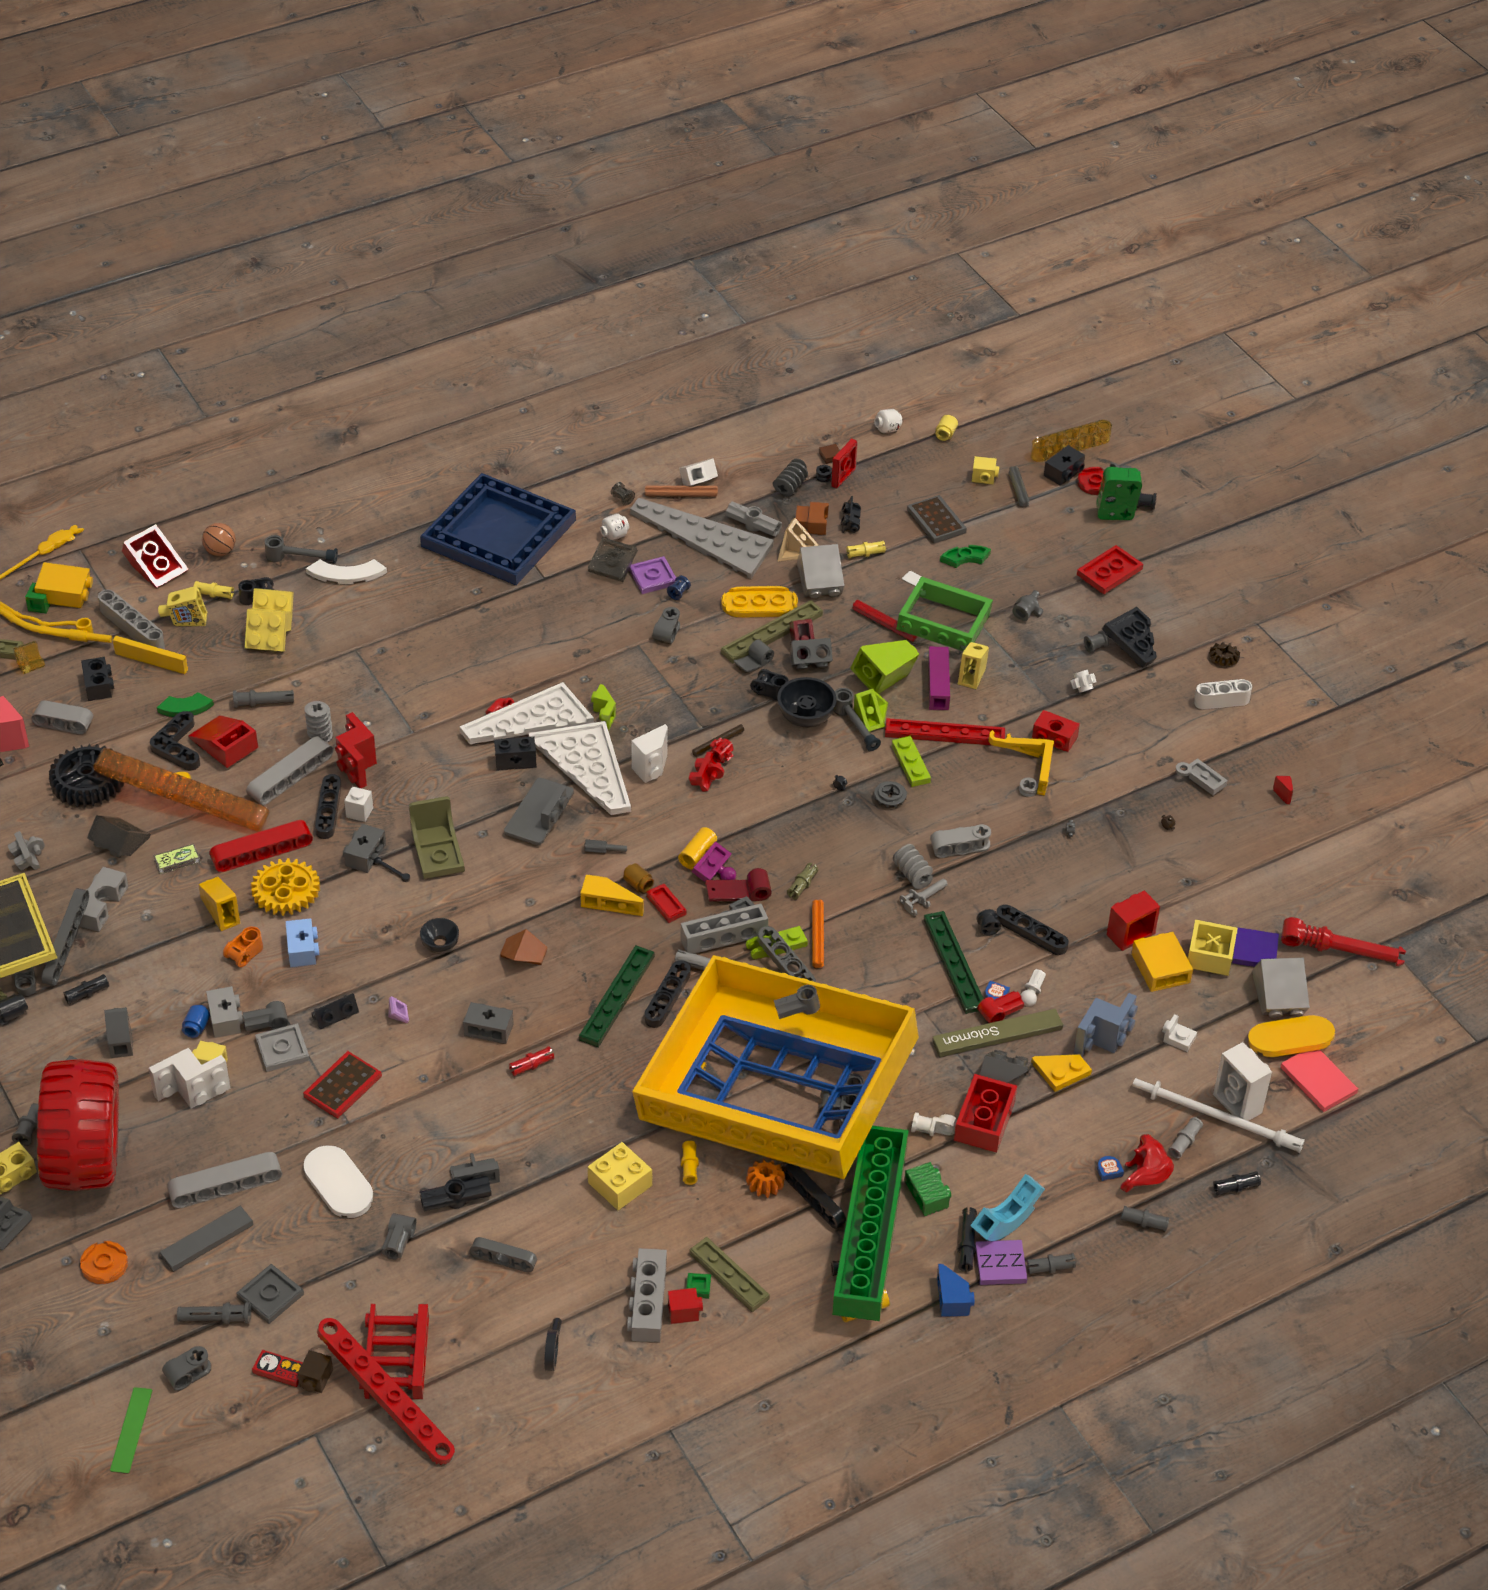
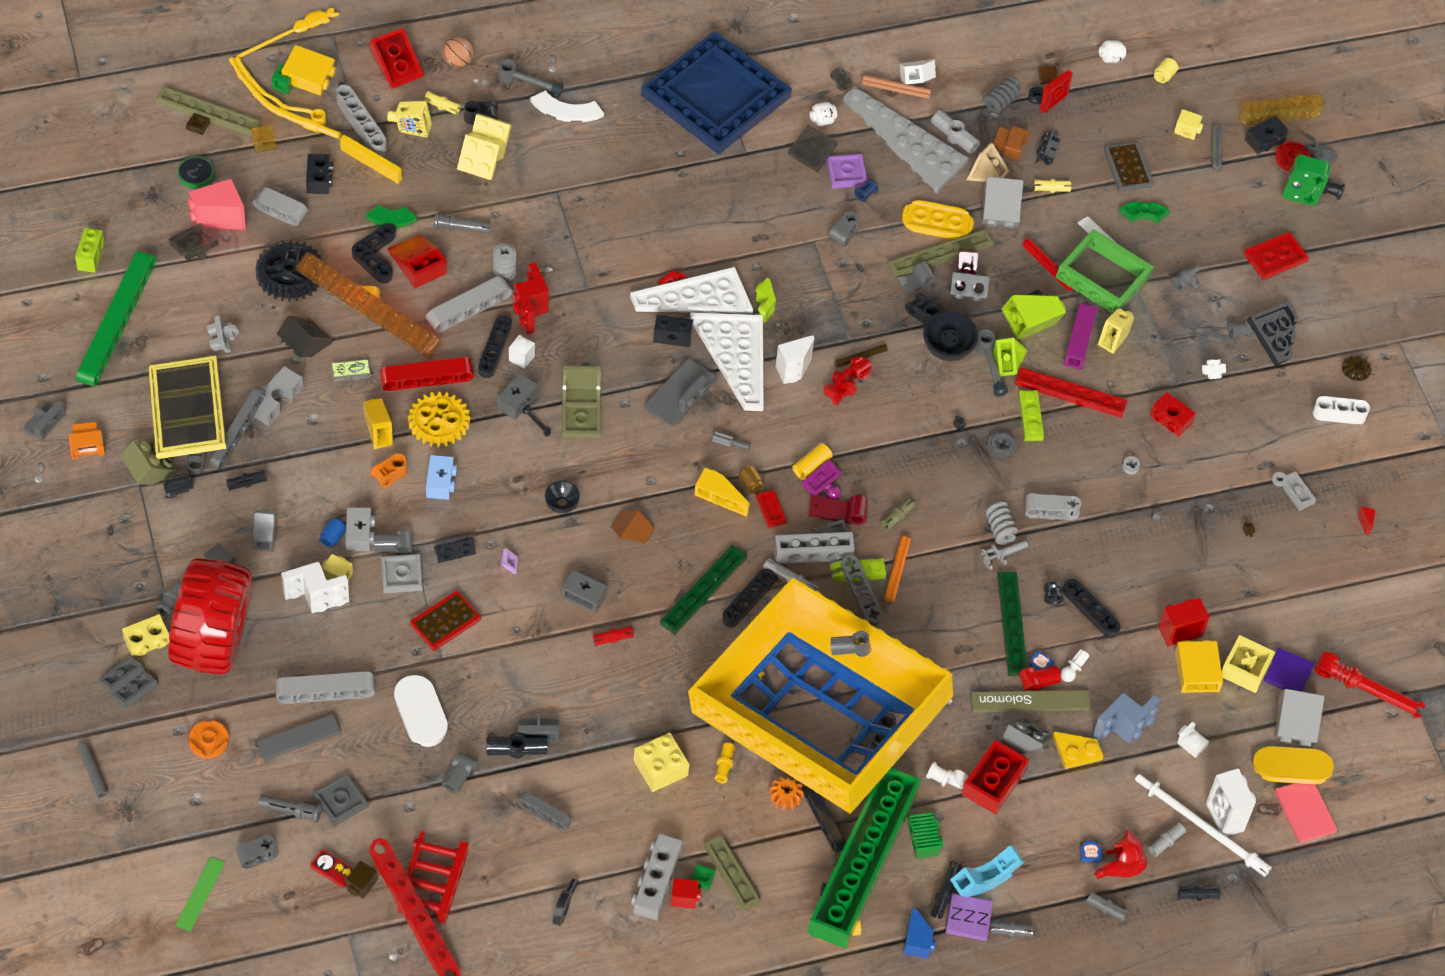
camera: 10 degrees right, 10 degrees up
(1032, 747) = (1145, 426): yellow hinge -> none

